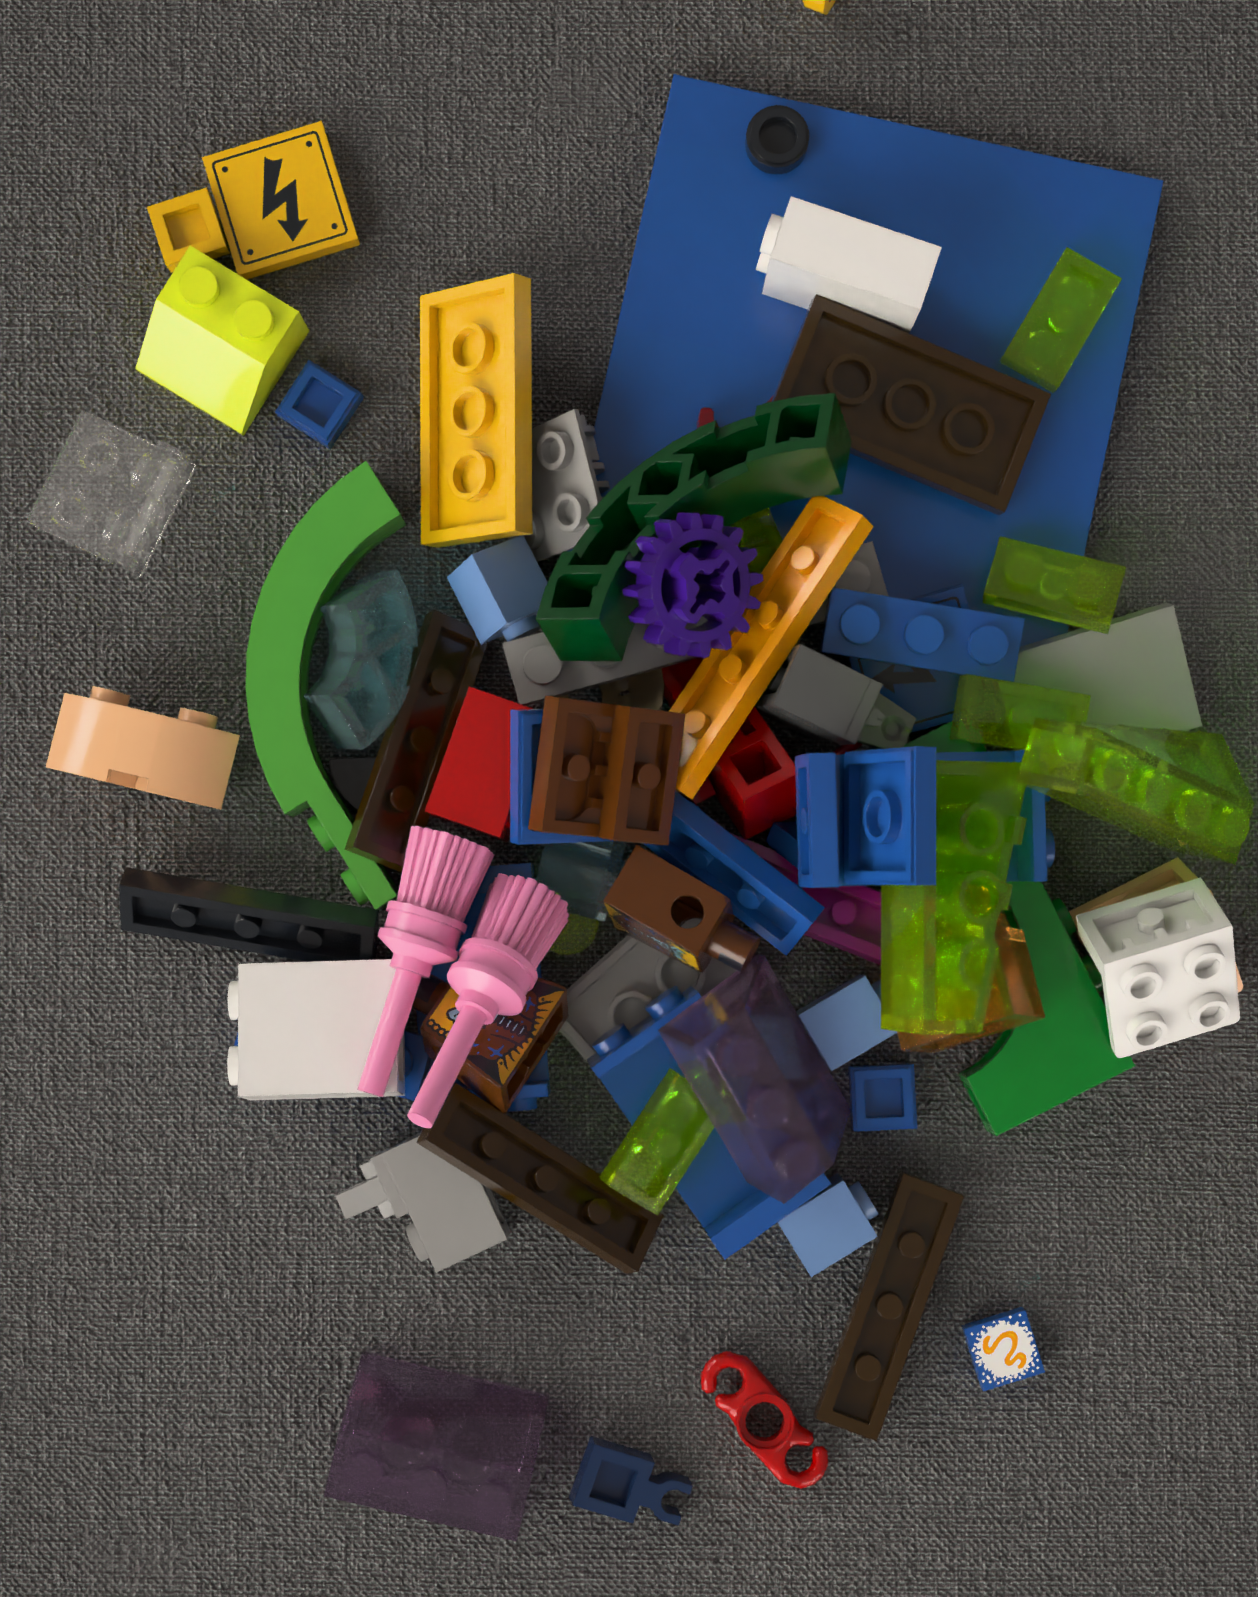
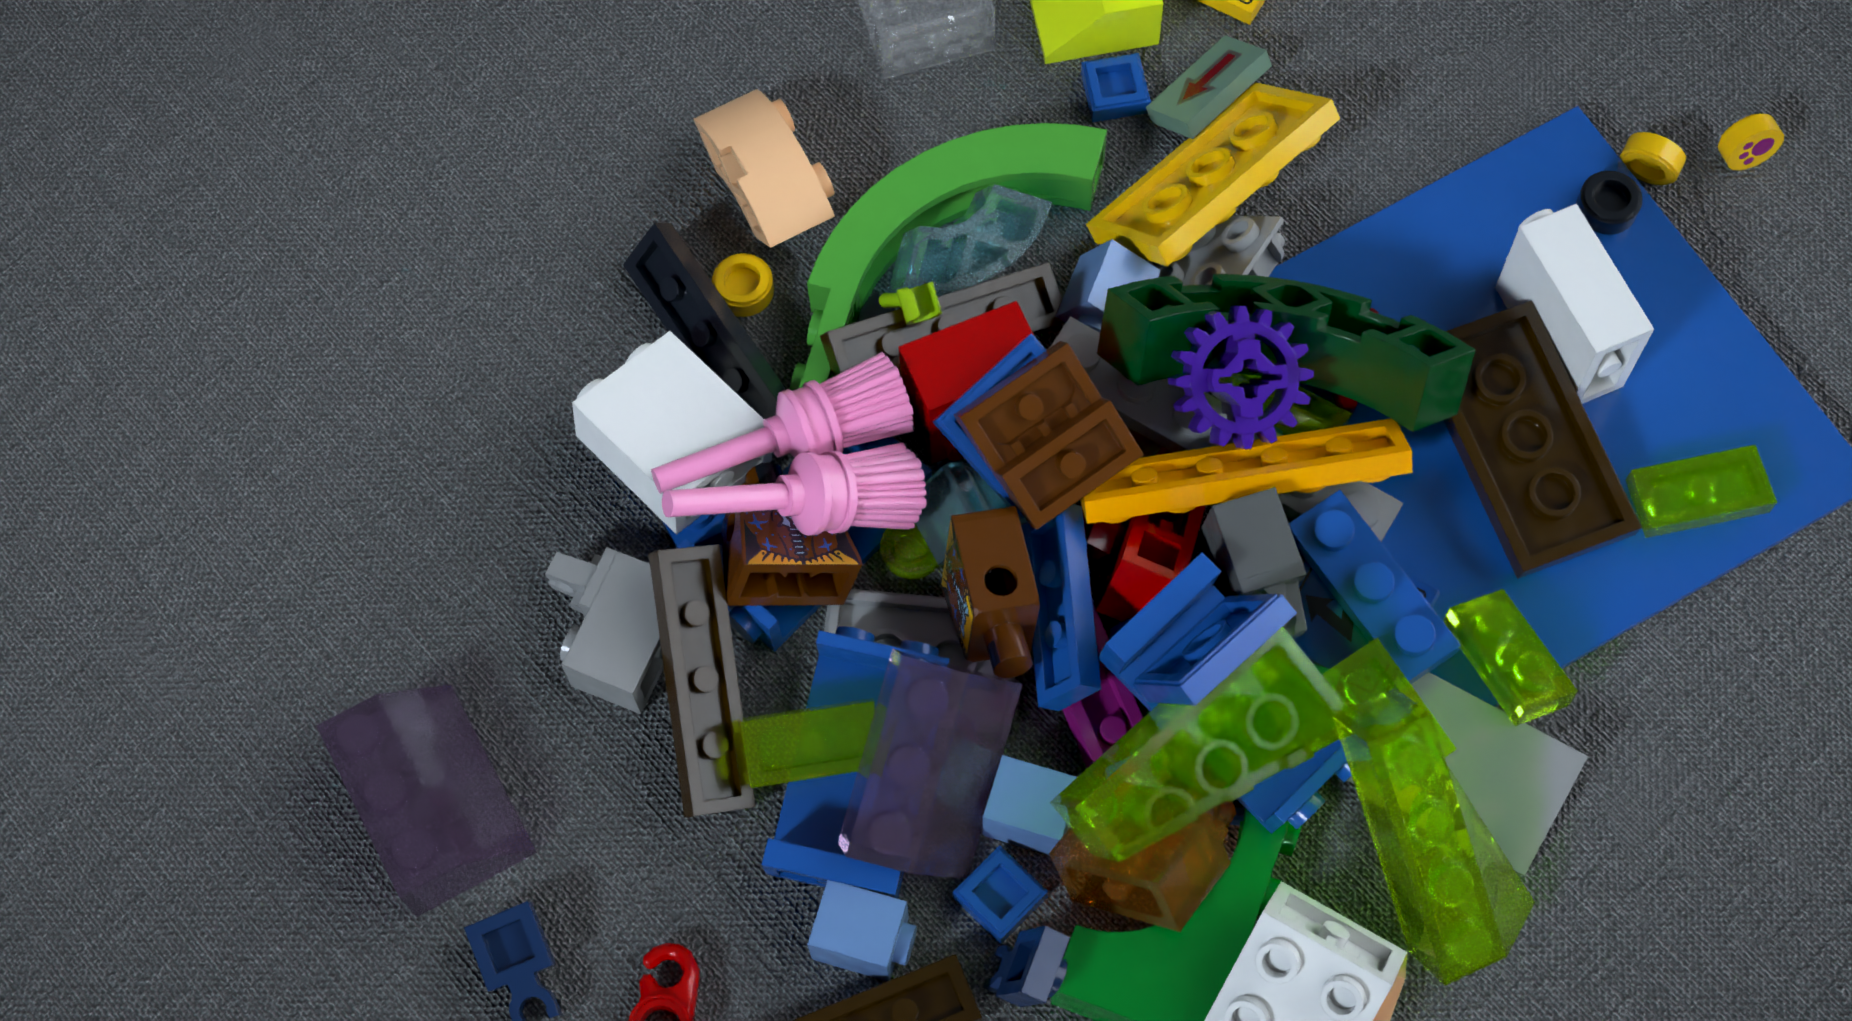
camera: 50 degrees right, 20 degrees down
(224, 851) = (744, 283): none -> yellow tile
(386, 753) = (916, 303): none -> lime hand
(391, 336) = (1208, 86): none -> sand green tile
(770, 67) = (1653, 158): none -> yellow tile
(968, 1137) = (1030, 969): none -> dark blue plate

